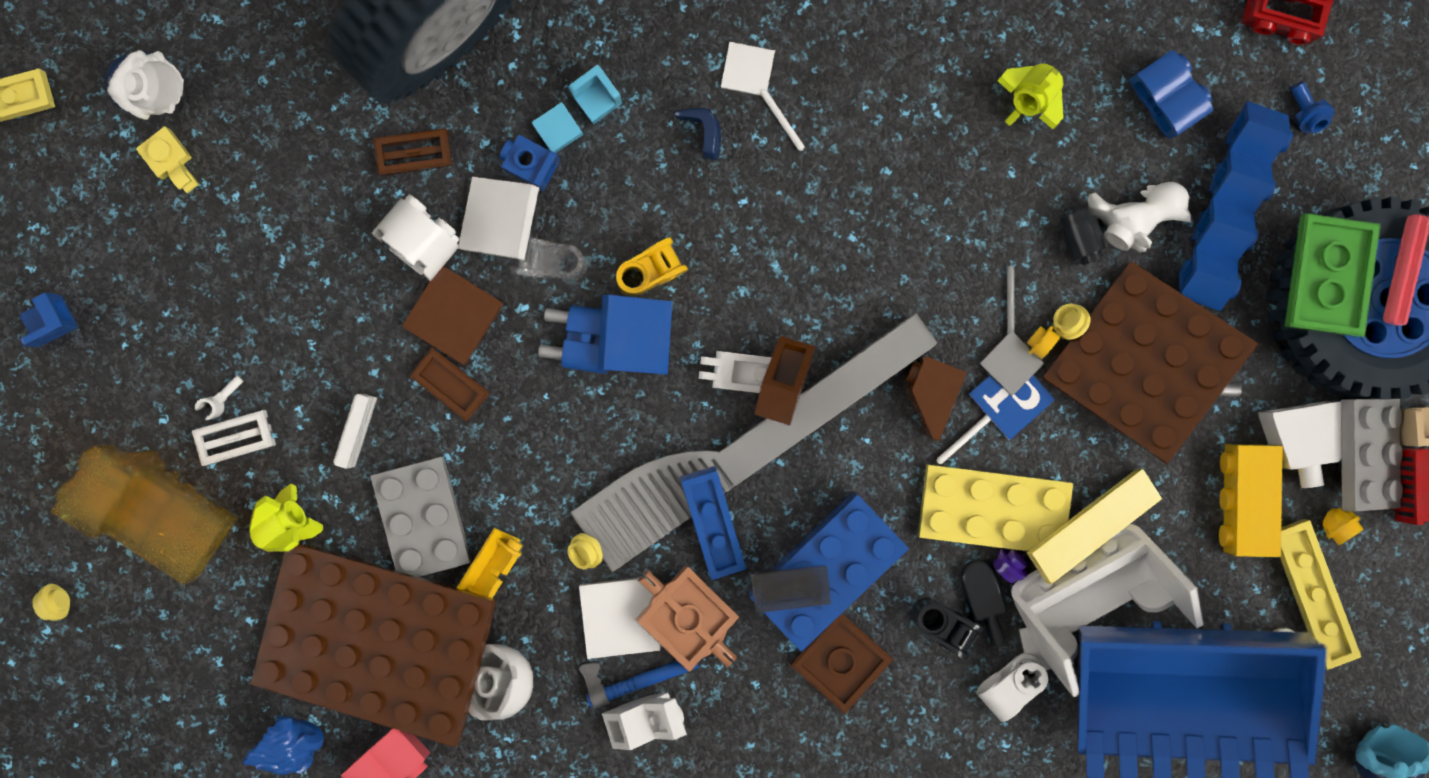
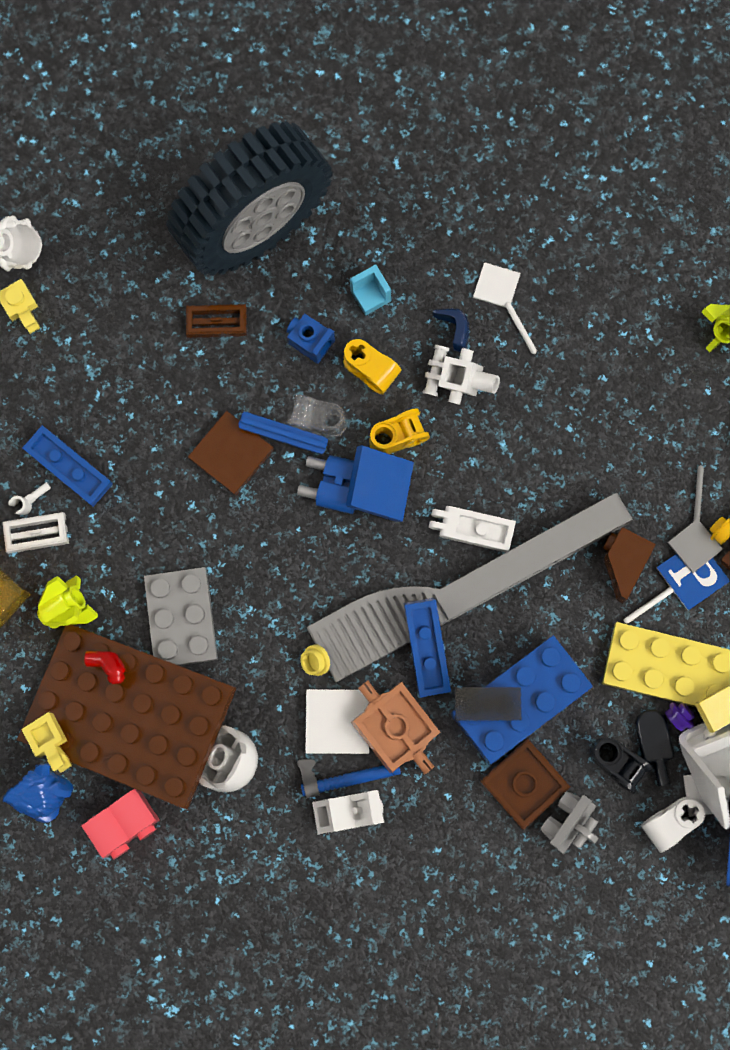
camera: 10 degrees right, 10 degrees down
(258, 354) = (67, 466): none -> blue plate
(282, 684) = (45, 739): none -> light yellow plate
(344, 589) = (109, 662): none -> red arm
(354, 430) = (137, 536): white tile -> none
(416, 237) = (211, 384): white brick -> none
(450, 384) = (220, 509): reddish brown tile -> none
(495, 557) = (236, 657): yellow hinge -> none
(498, 218) = (279, 378): white tile -> none
(512, 284) = (283, 433): none -> blue axle
(557, 128) = (336, 313): medium azure tile -> none
(612, 194) = (373, 369): none -> yellow piece
(713, 191) = (458, 375): none -> white piece
(784, 380) = (500, 533): reddish brown slope -> none
(889, 715) = (579, 812): none -> light grey hips

